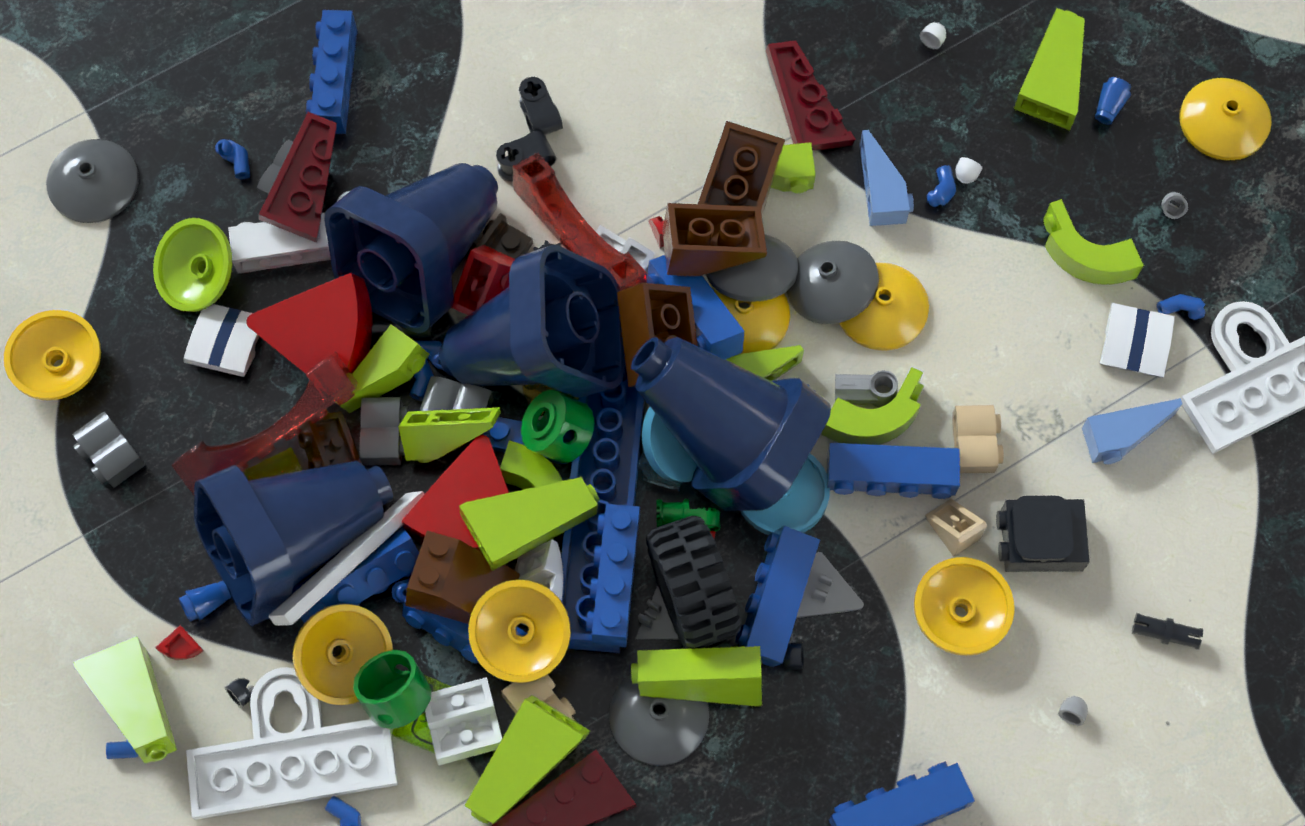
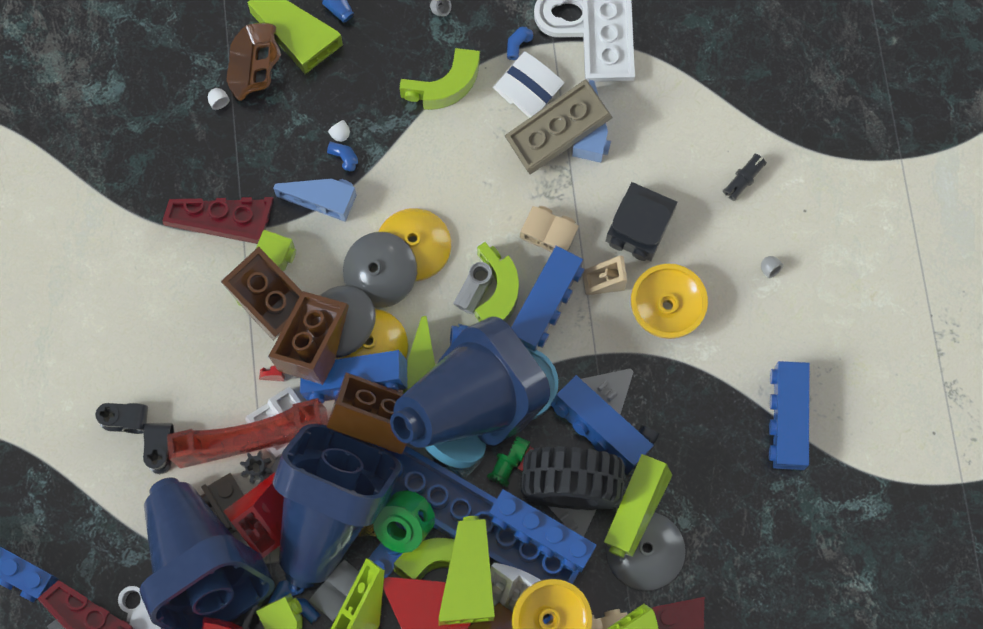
camera: 65 degrees left, 5 degrees up
(991, 41) = (244, 59): none -> reddish brown piece
(1104, 390) = (558, 126): none -> dark tan tile

